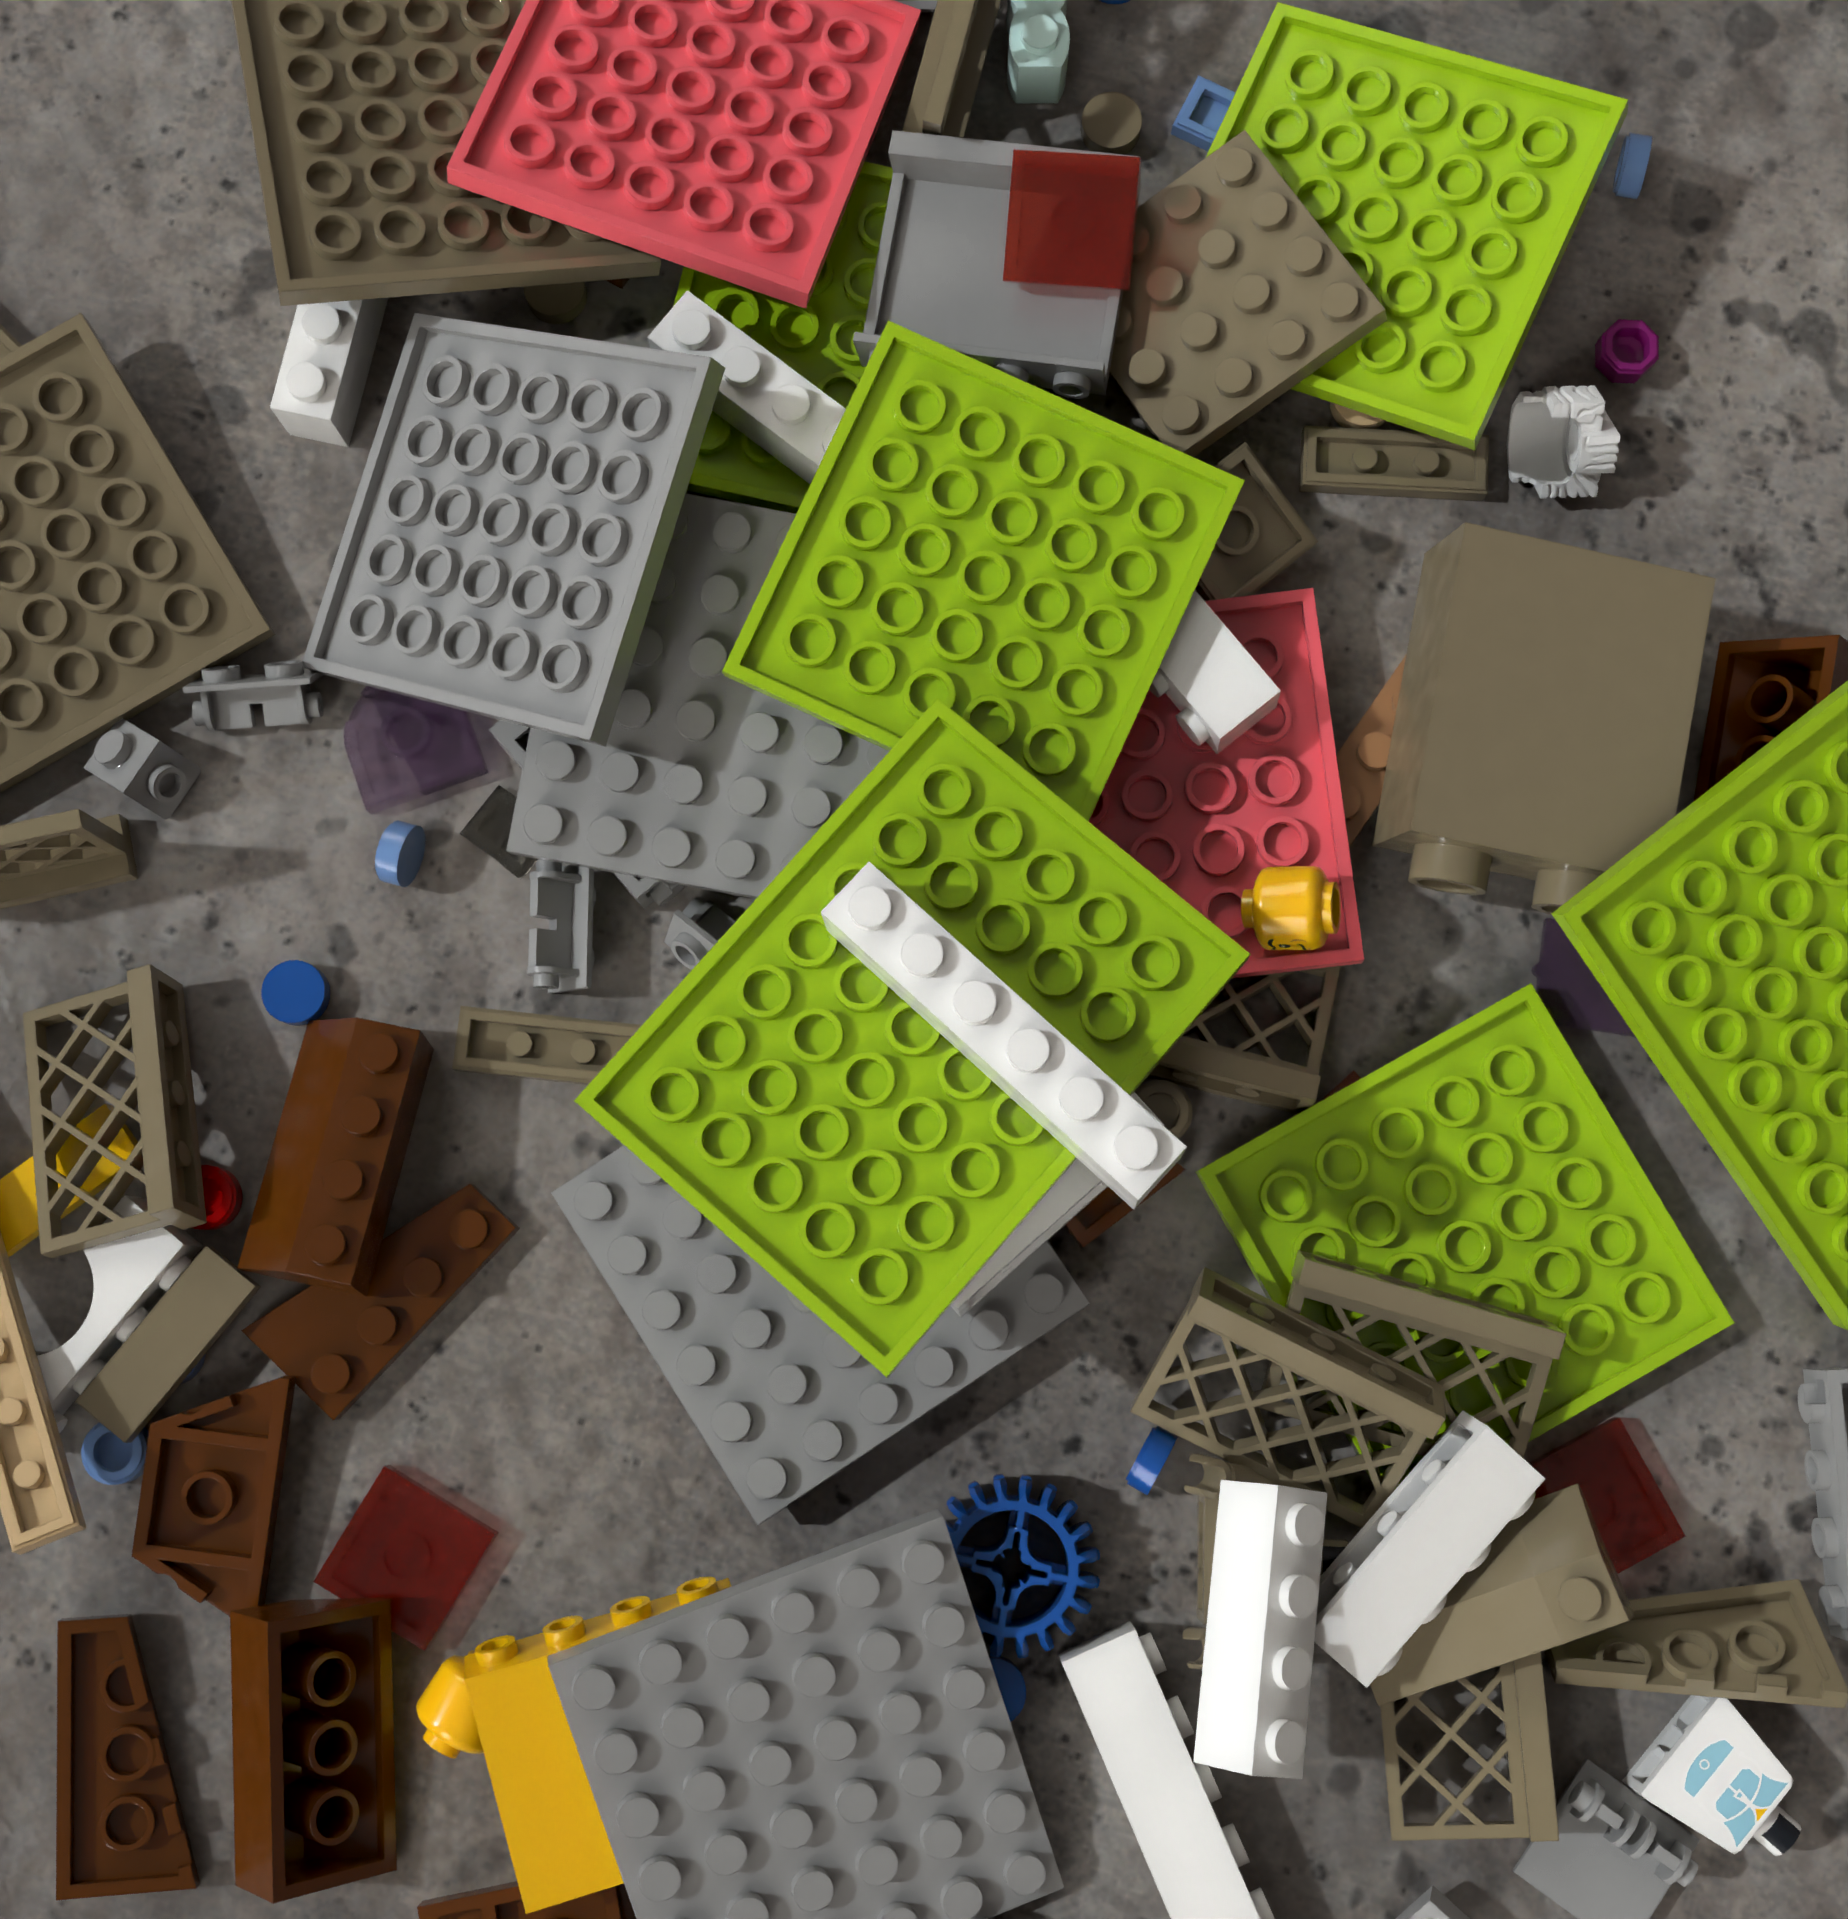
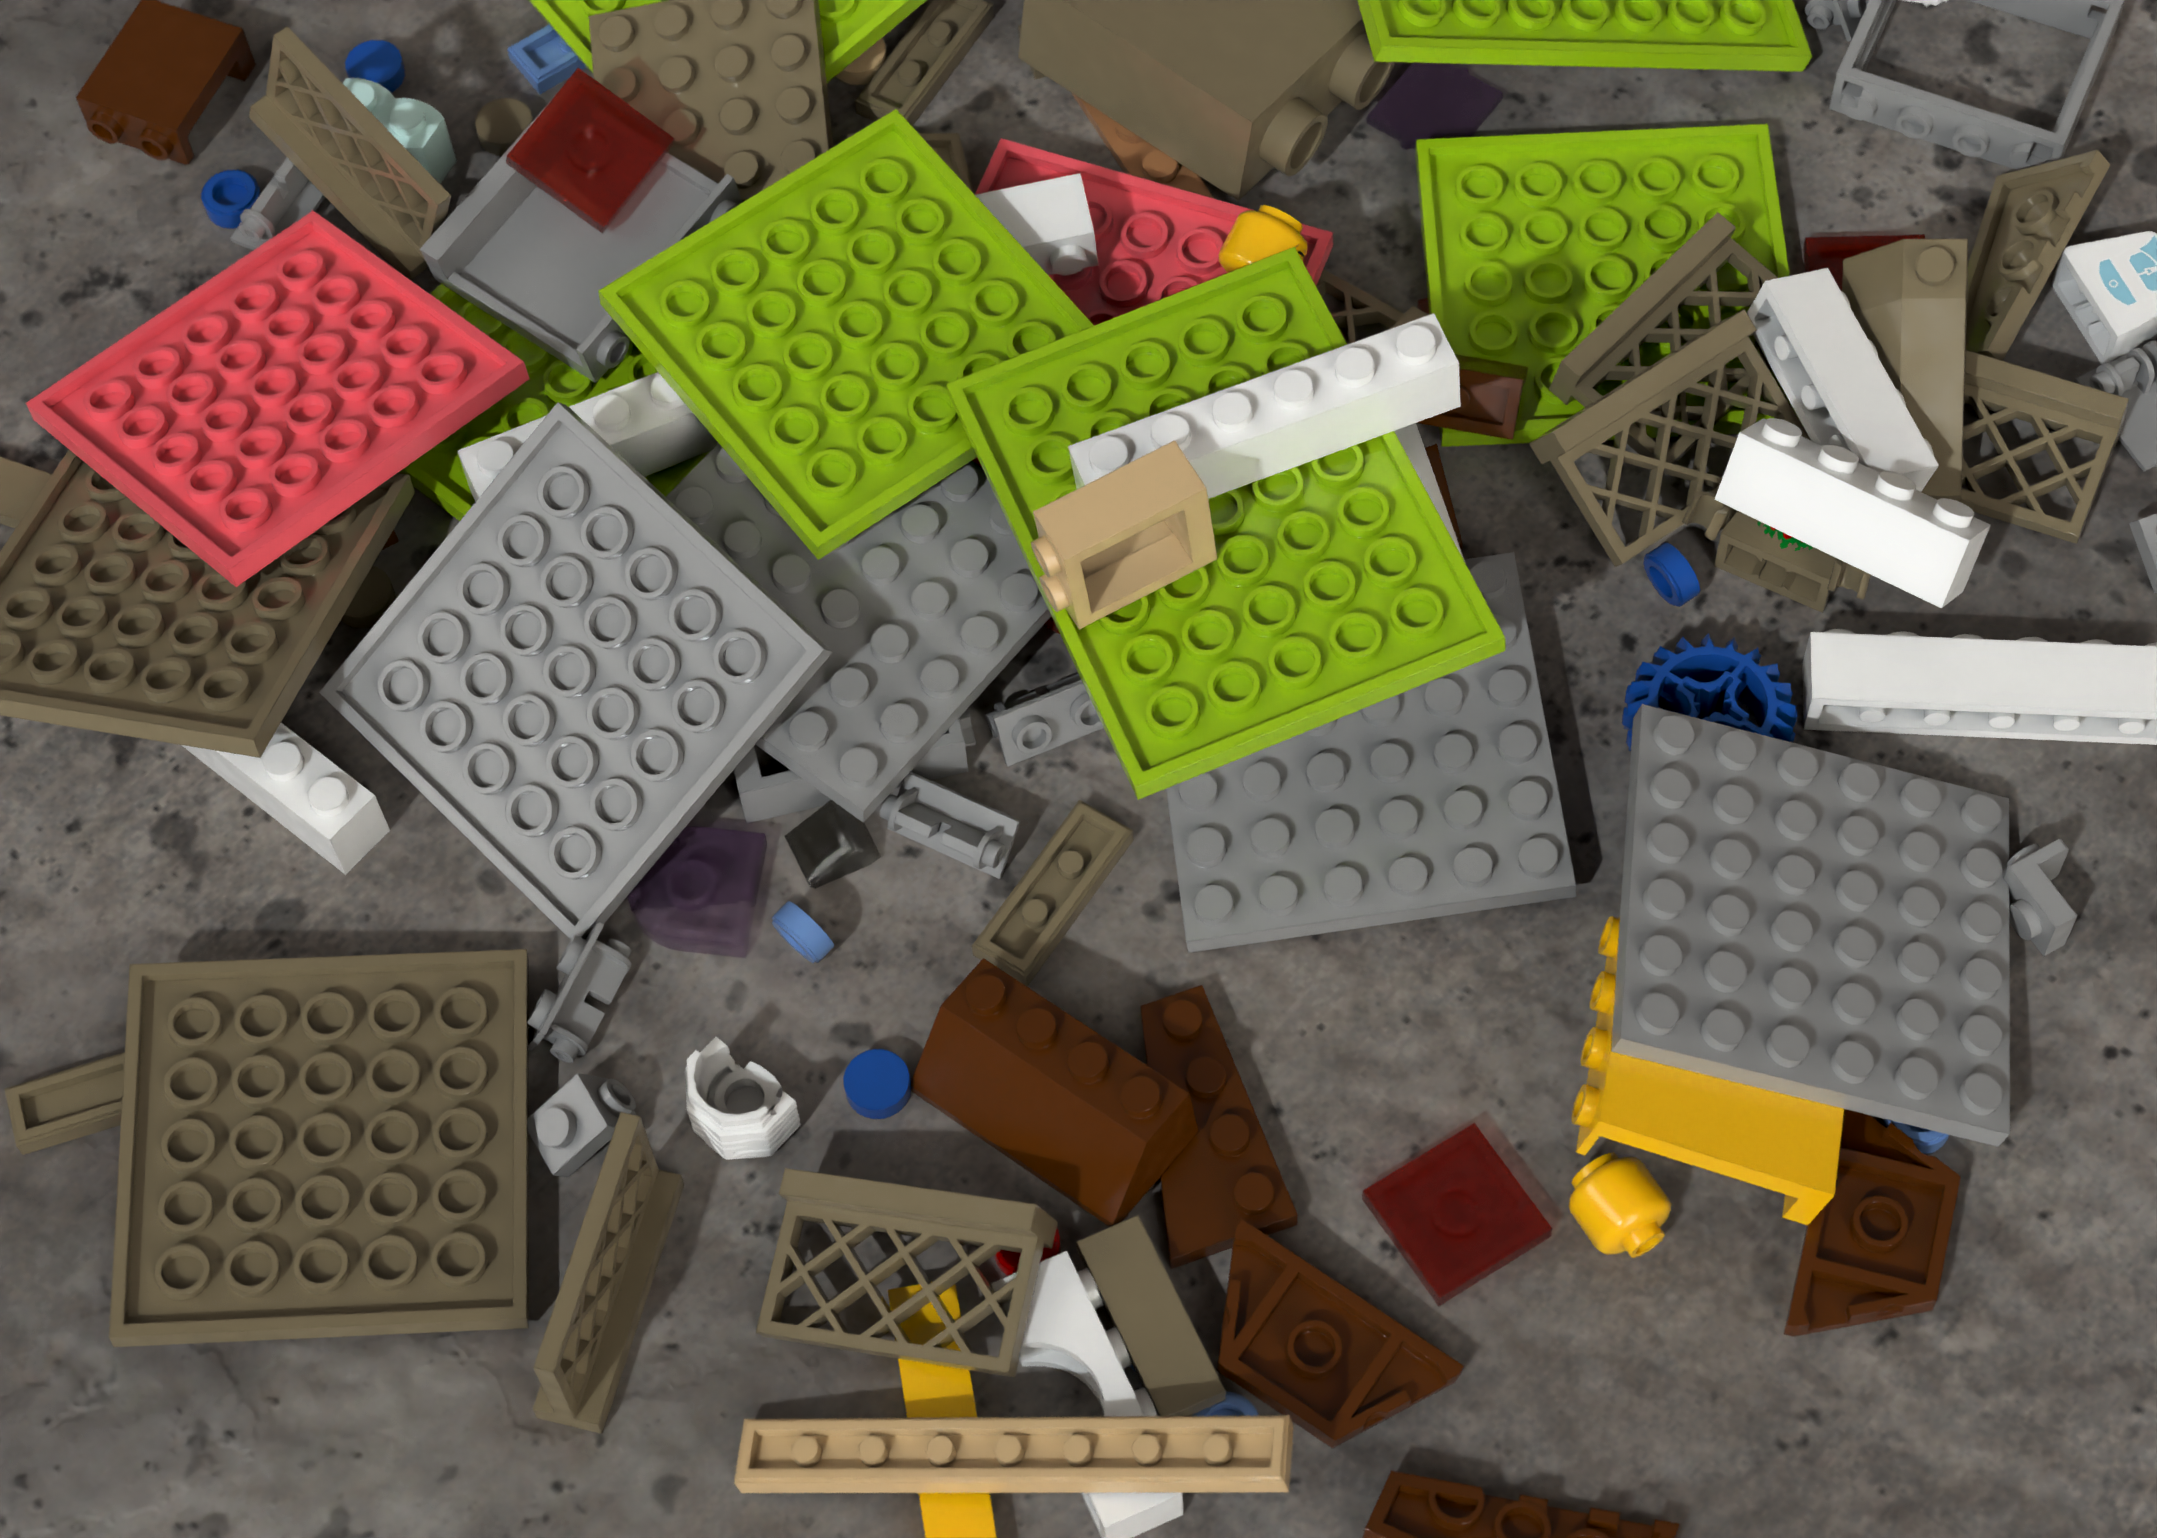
camera: 60 degrees left, 20 degrees down
(206, 886) = (737, 1108): none -> white hair
(312, 1745) = (1591, 1351): reddish brown slope -> none
(798, 963) = (1124, 535): none -> tan window
(1246, 1167) = (1488, 398): none -> reddish brown panel

